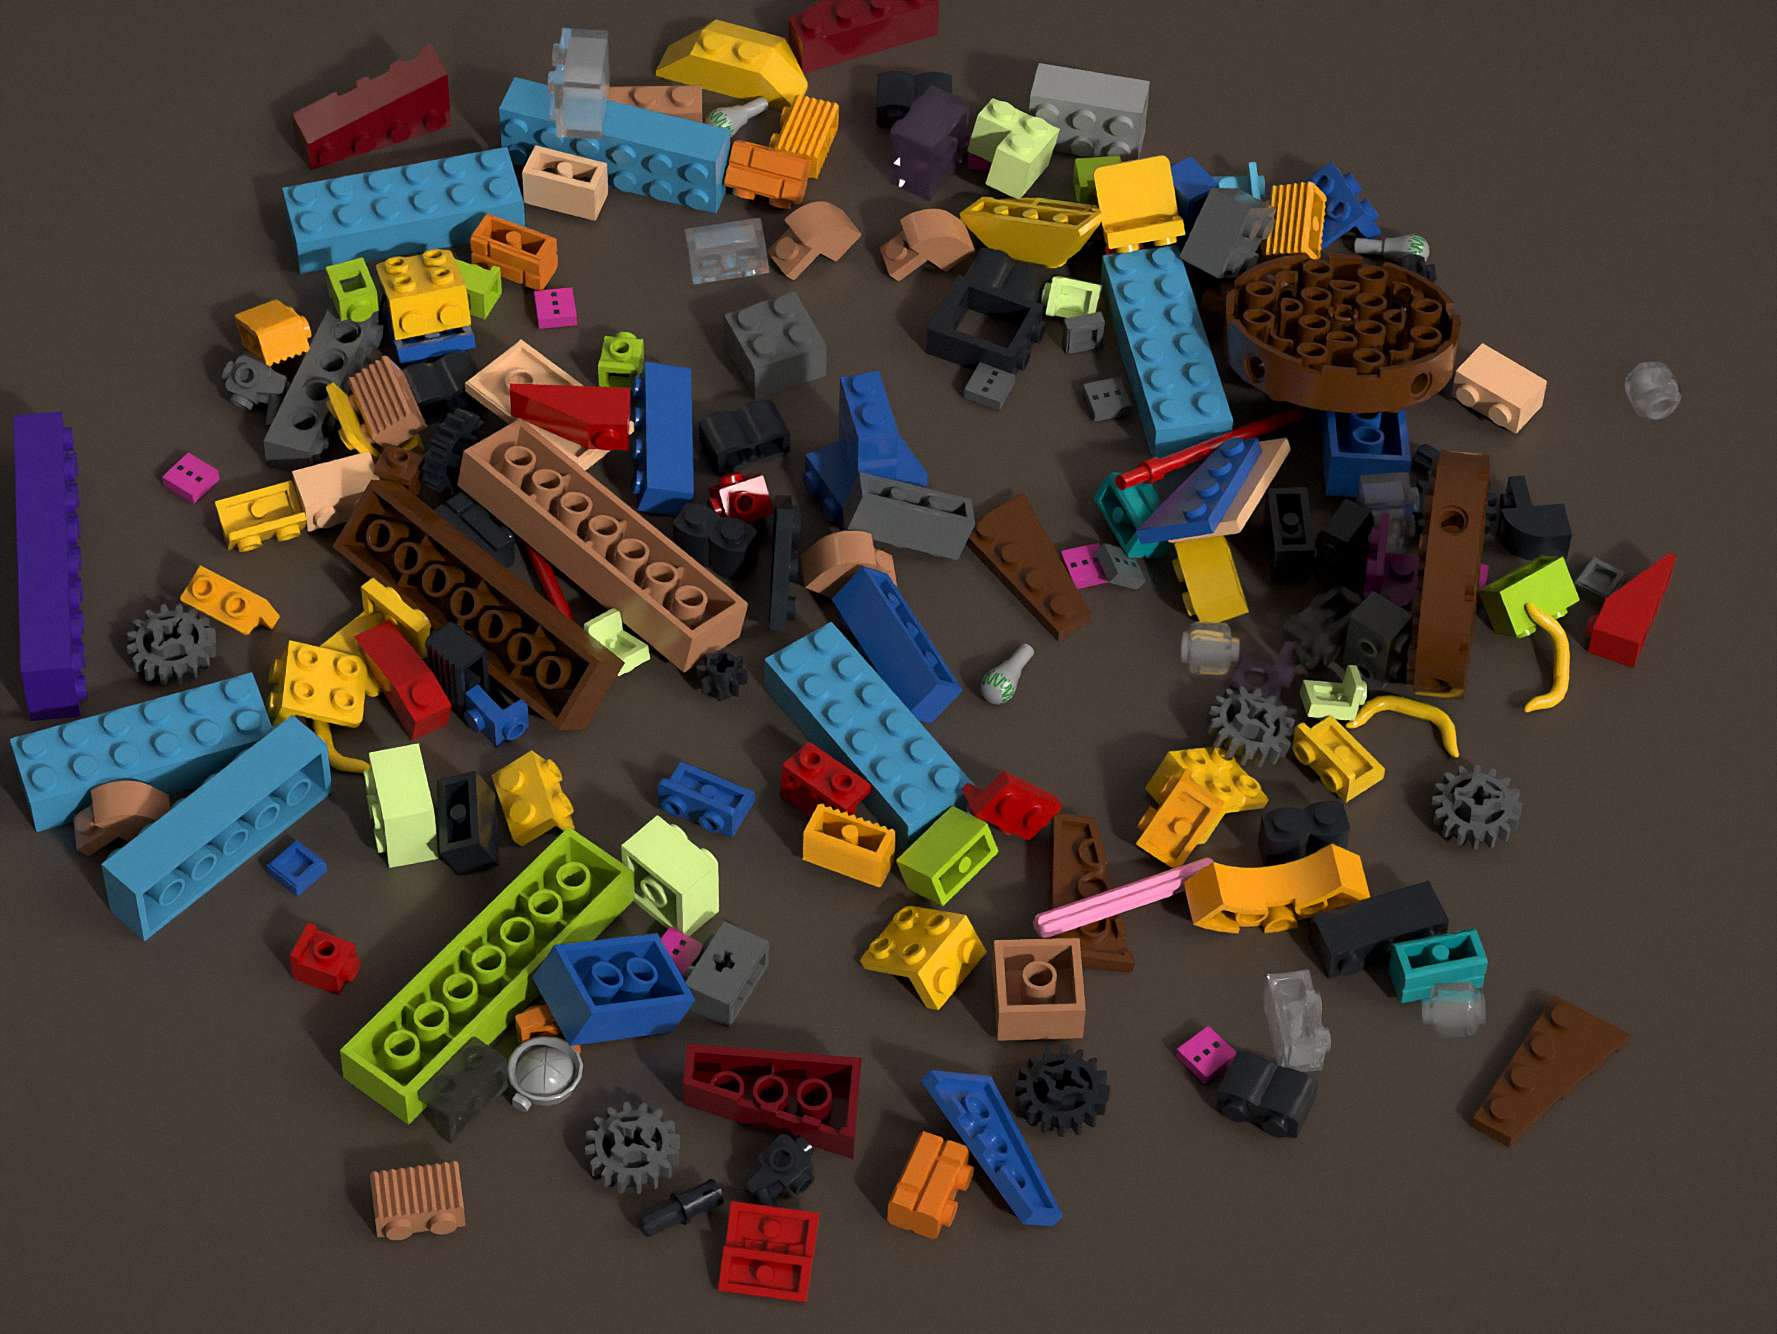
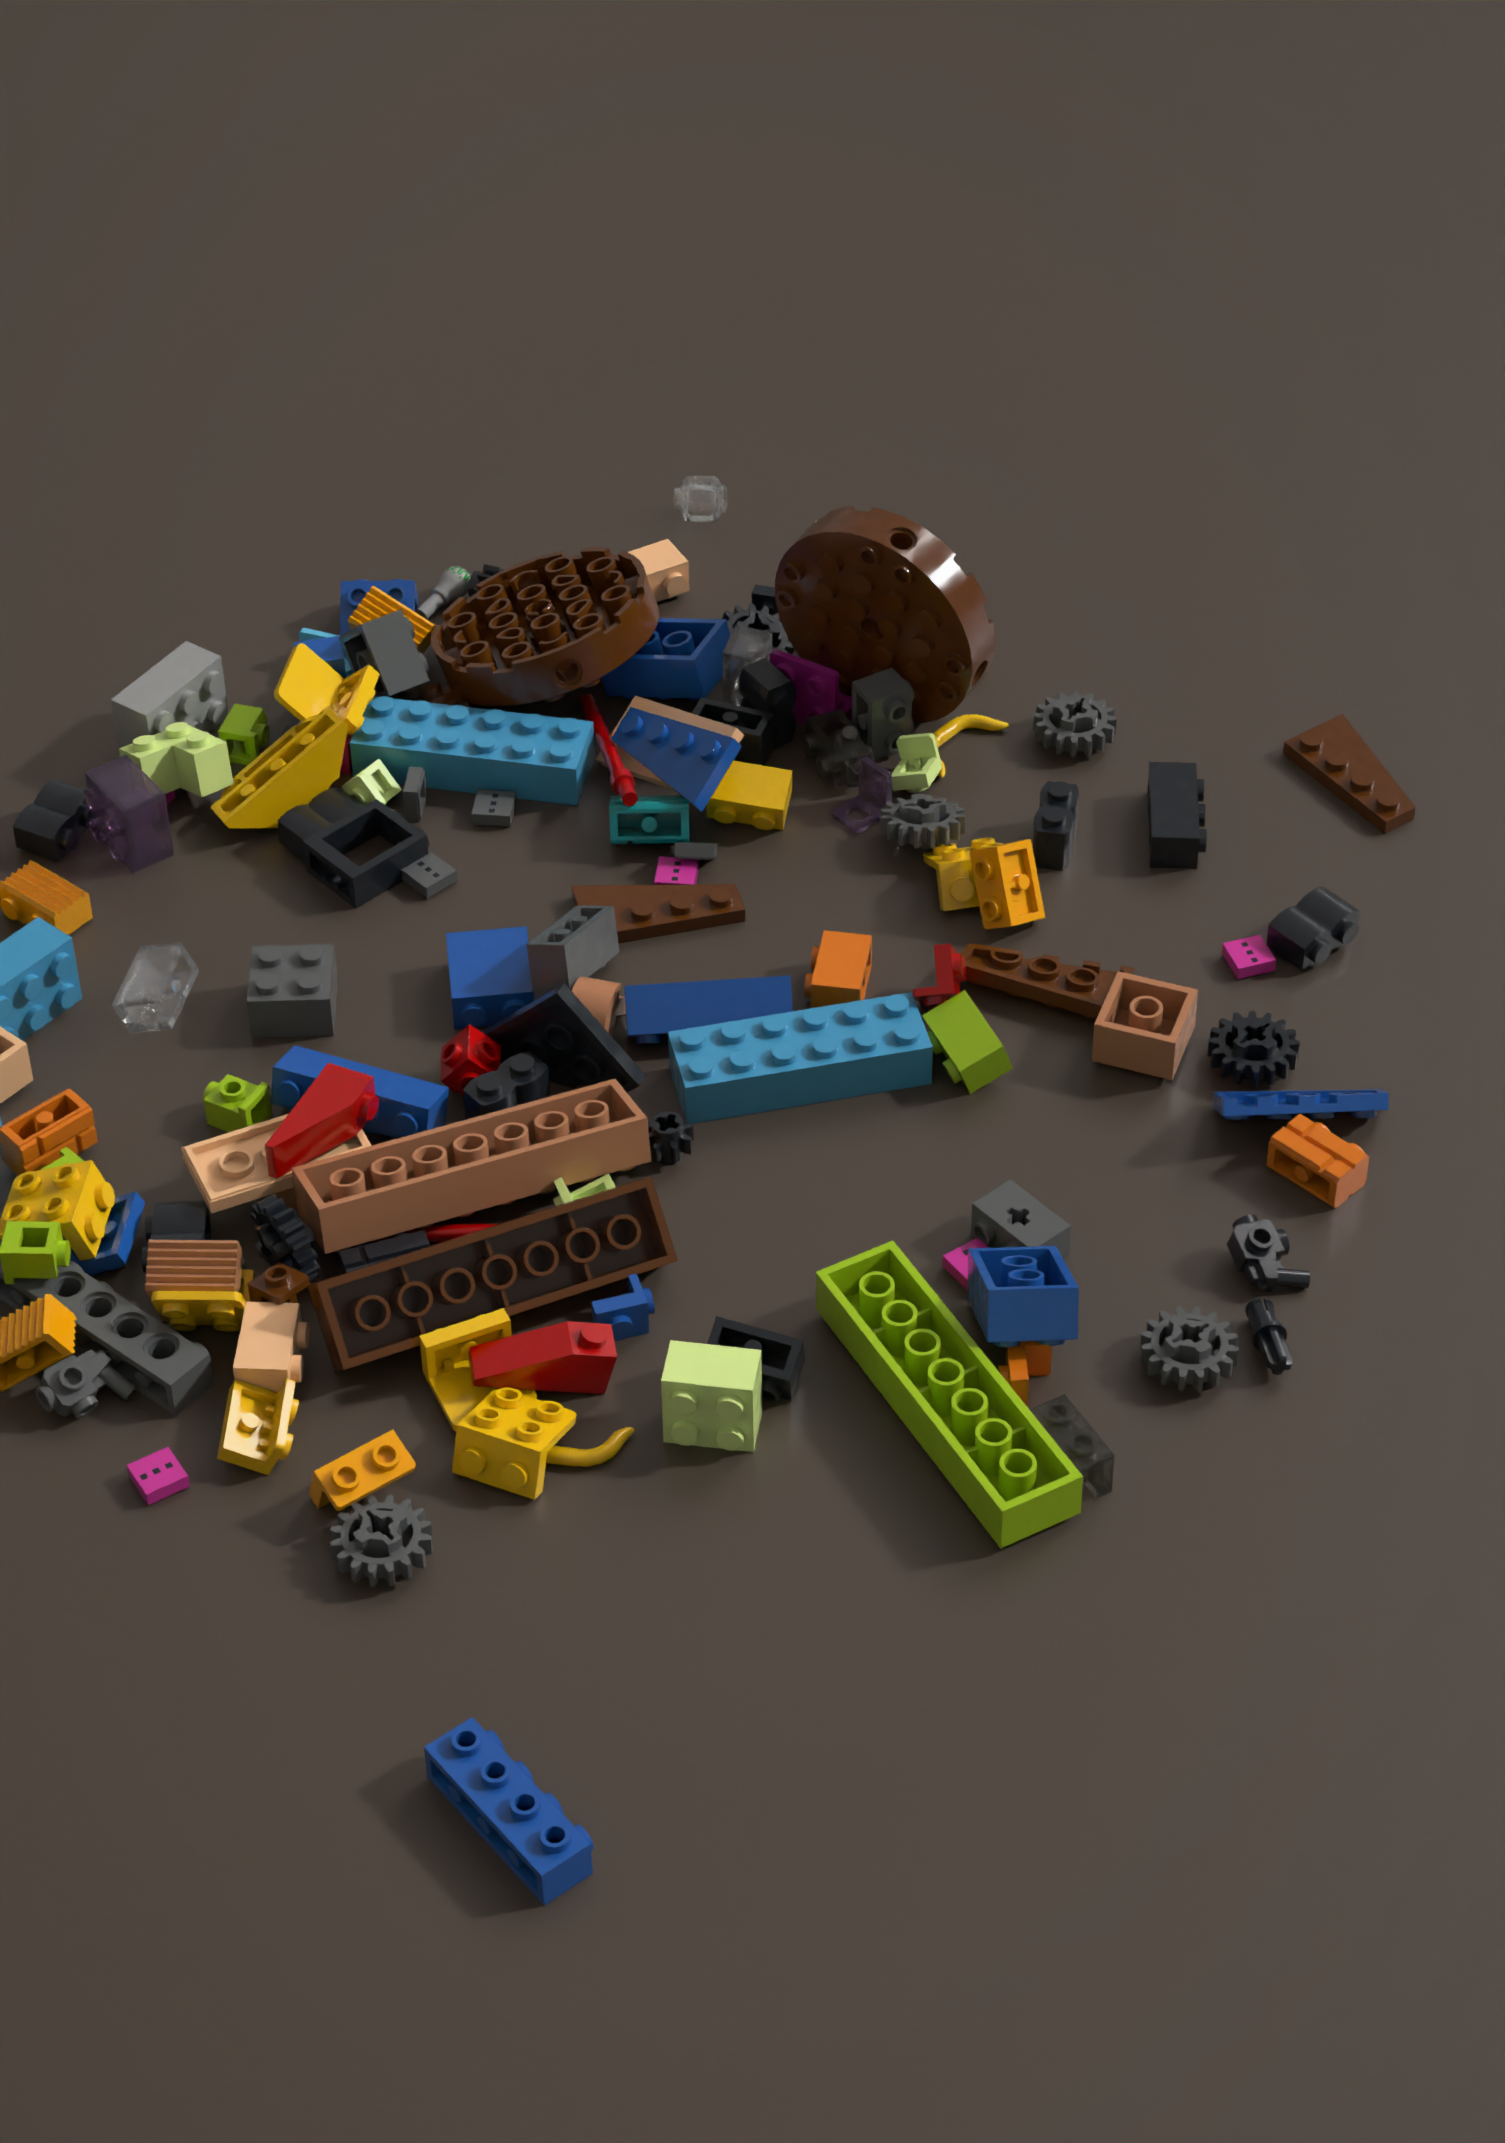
camera: 65 degrees left, 10 degrees down
(48, 566) = (224, 1606): dark purple brick -> none
(118, 811) = (592, 1630): nougat brick -> none
(157, 742) = (514, 1598): dark azure brick -> none
(217, 827) = (661, 1551): dark azure brick -> none
(296, 868) = (720, 1519): blue tile -> none
(324, 960) = (856, 1520): red brick -> none
(417, 1200) = (1182, 1522): nougat brick -> none
(457, 663) = (560, 1297): black brick -> none
(521, 1102) = (1094, 1420): light grey piece -> none
(532, 797) = (756, 1306): yellow bracket -> none
(545, 1070) = (1073, 1377): light grey hat -> none
(555, 308) = (126, 1138): dark pink tile -> none
(672, 876) = (912, 1212): yellowish green brick -> none
(705, 799) = (808, 1189): blue bracket -> none
(744, 436) = (387, 1038): black brick -> none
(767, 173) = (92, 926): orange brick -> none
(769, 1251) = (1341, 1290): red slope -> none
(778, 1092) = (1182, 1223): dark red wedge -> none
(812, 231) = (181, 922): nougat brick -> none
(817, 778) = (848, 1102): red bracket -> none
(849, 845) = (924, 1100): light orange brick -> none
(867, 426) = (487, 923): blue brick -> none
(927, 236) = (241, 854): nougat brick -> none
(929, 948) = (1054, 1093): yellow bracket -> none
(1001, 682) = (777, 959): light grey piece -> none
(1001, 733) = (840, 969): none -> orange brick
(1116, 900) = (1070, 947): bright pink axle -> none
(1209, 648) = (822, 821): clear head -> none
(1277, 895) = (1108, 863): light orange brick -> none
(1295, 1021) = (1254, 885): clear brick -> none
(1336, 758) = (982, 785): yellow bracket -> none
(1434, 960) = (1234, 787): teal brick -> none
(1454, 1009) = (1277, 795): clear head -> none

